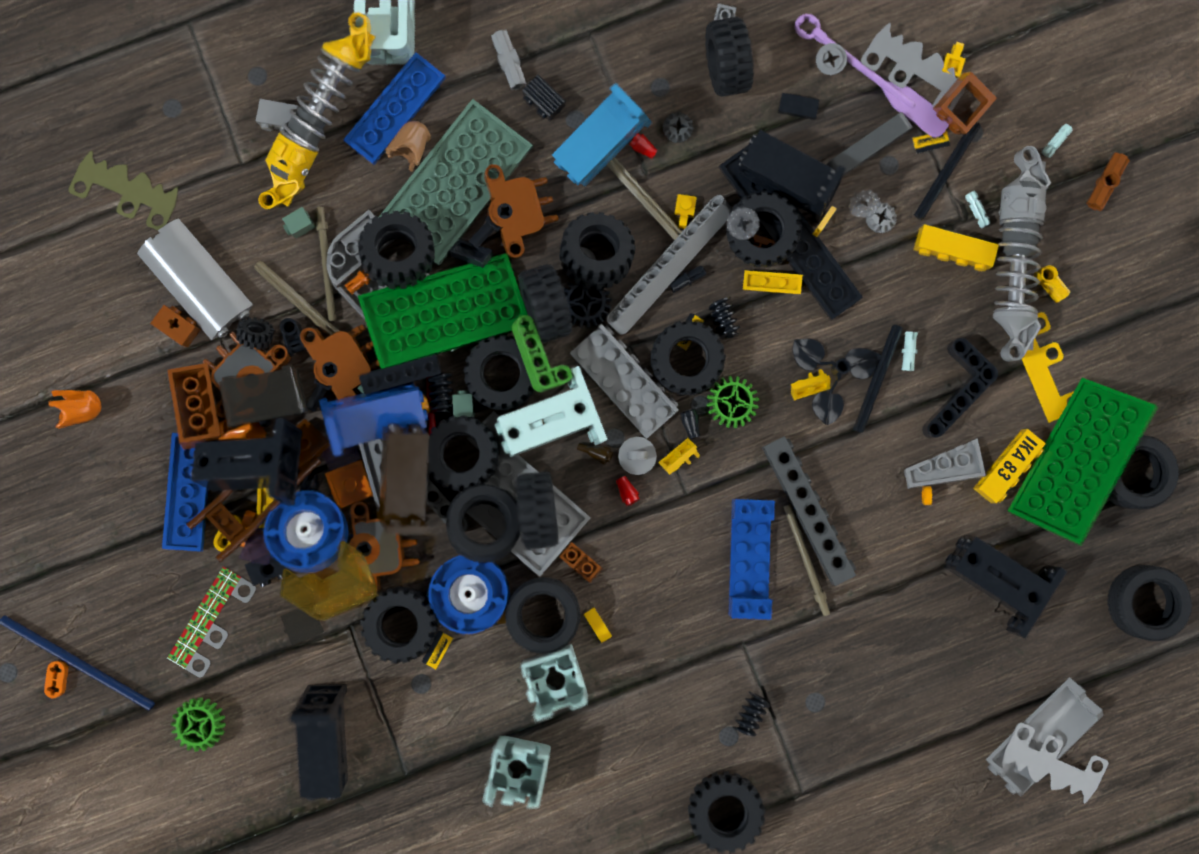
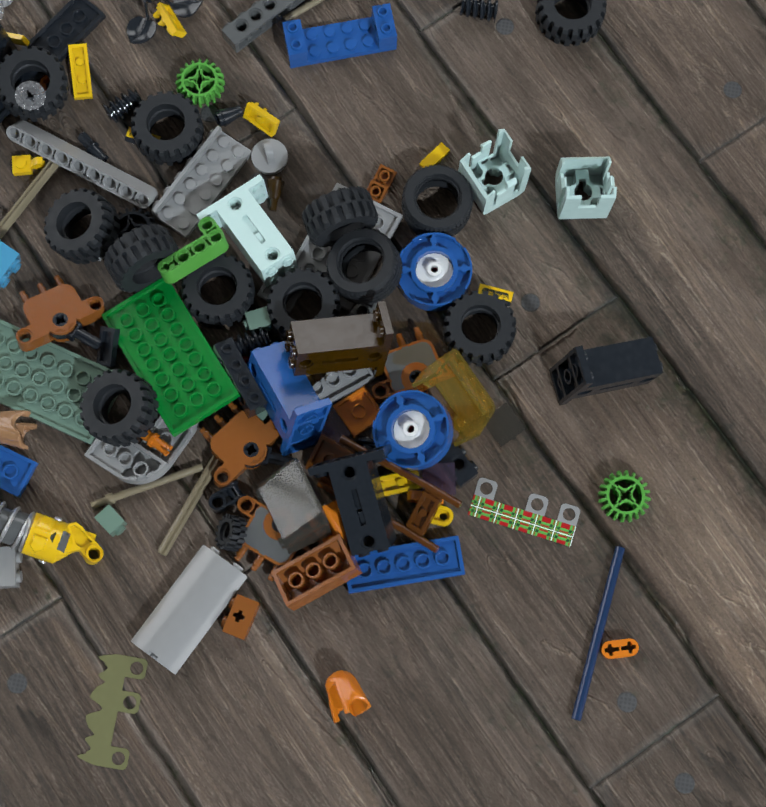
camera: 105 degrees left, 10 degrees down
(627, 491) = (304, 157): red cone -> none

